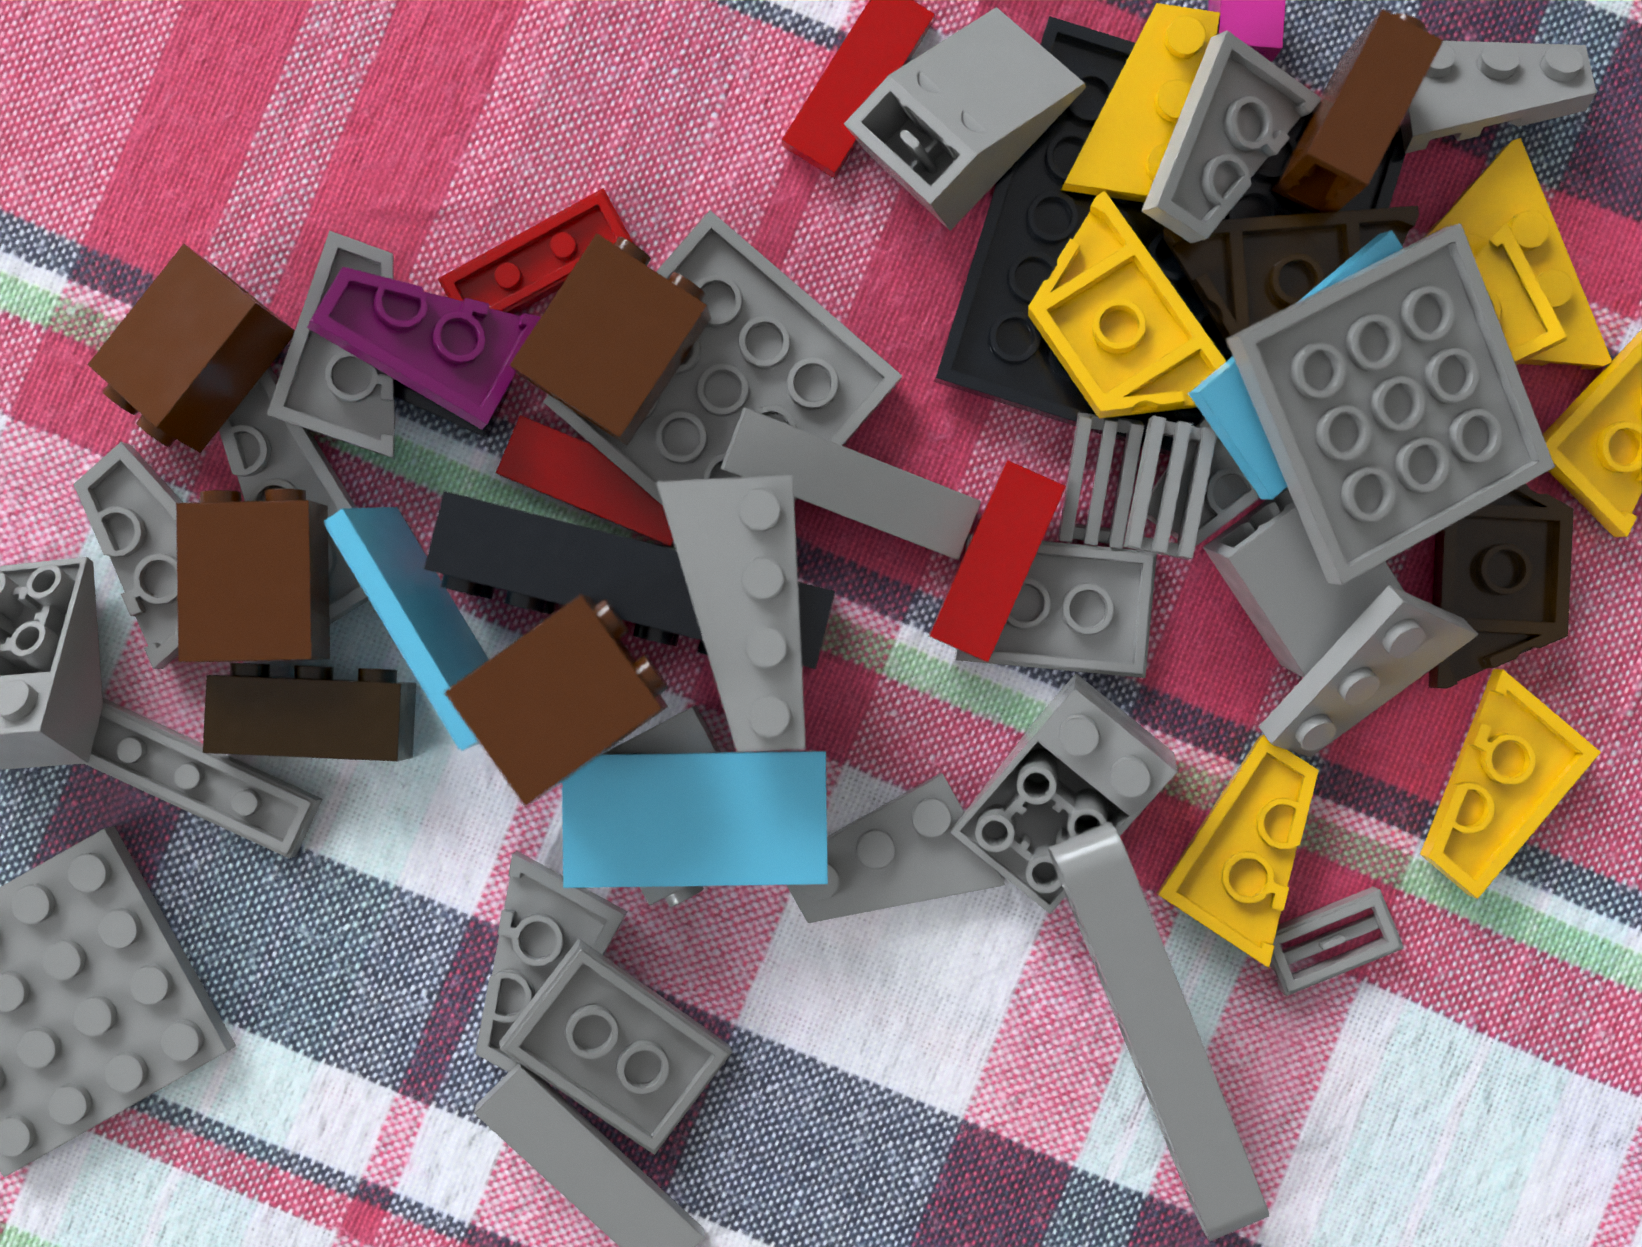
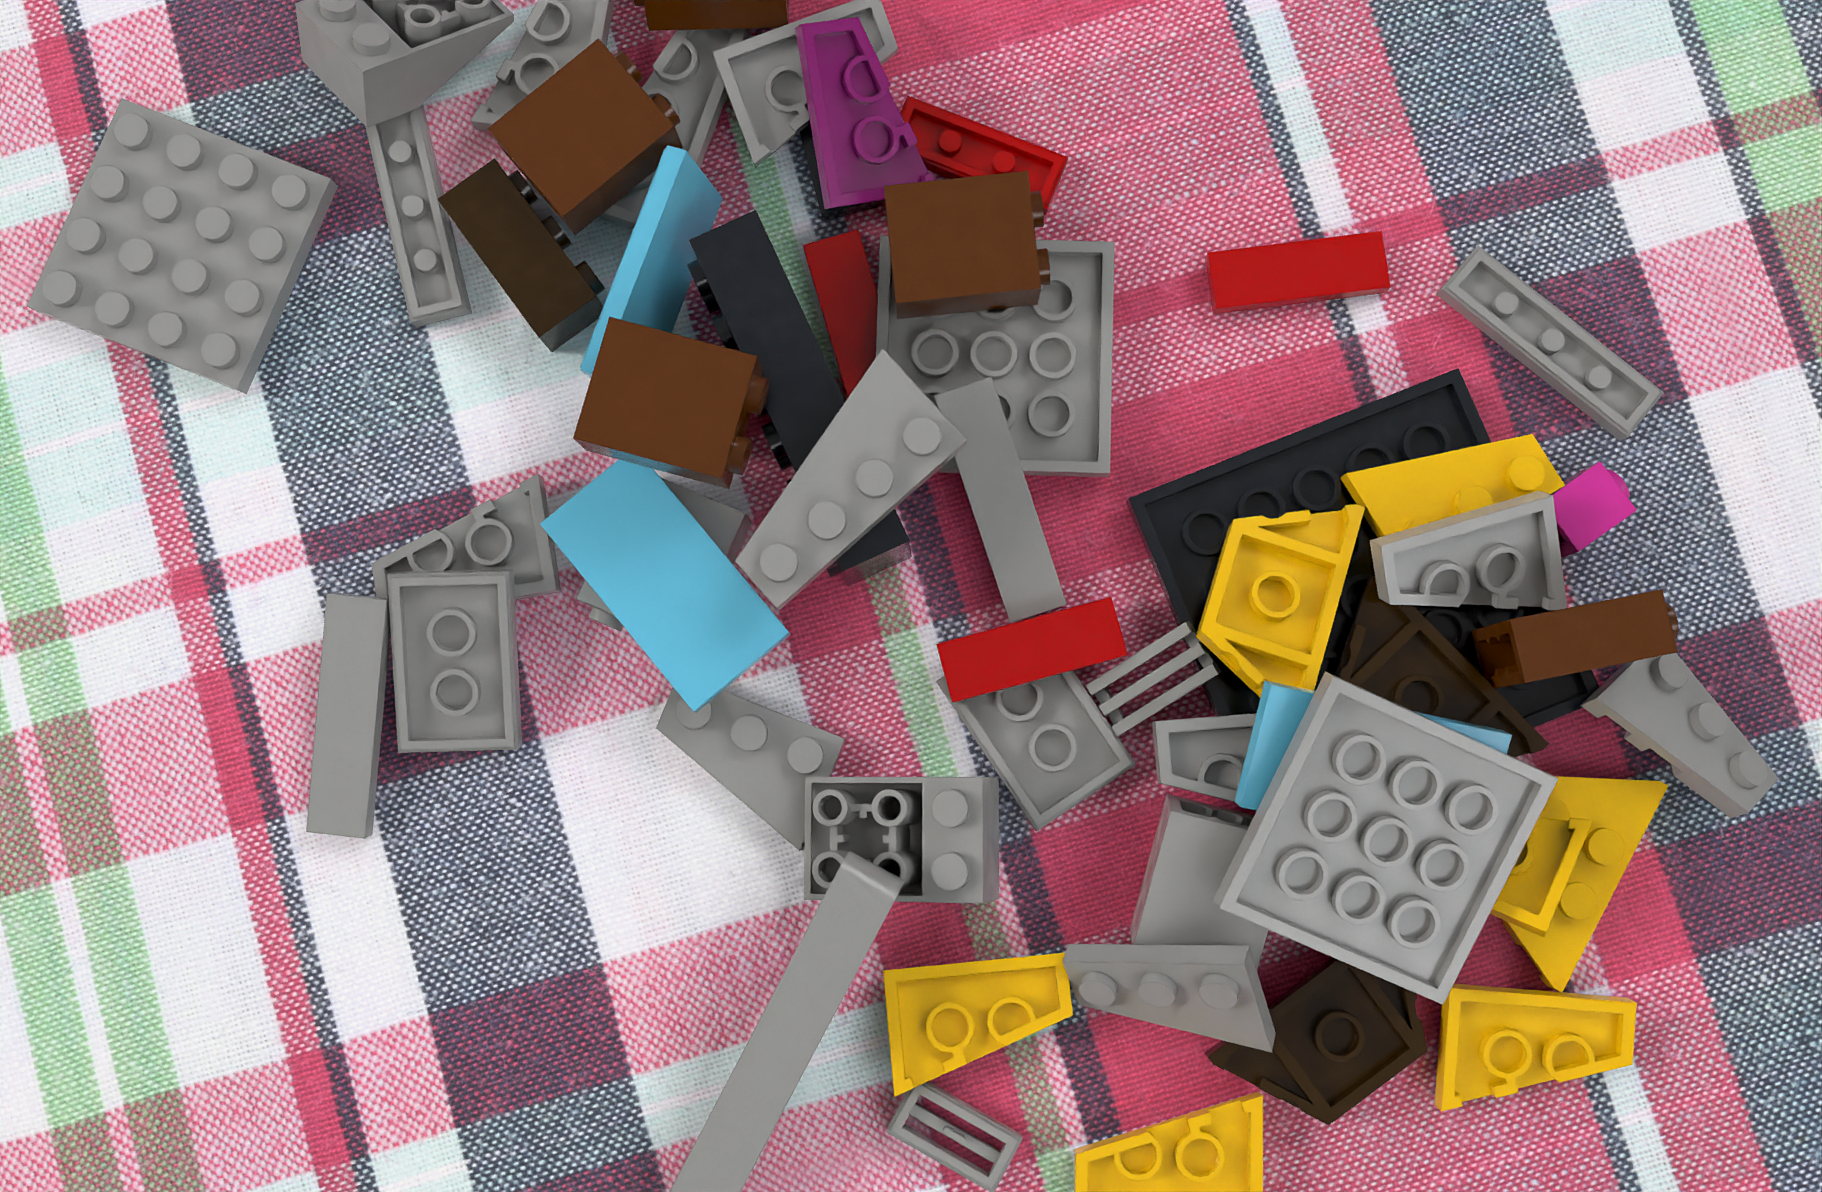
camera: 60 degrees right, 5 degrees down
(964, 113) = (1335, 361): light grey slope -> none
(1181, 433) = (1234, 703): light grey tile -> none

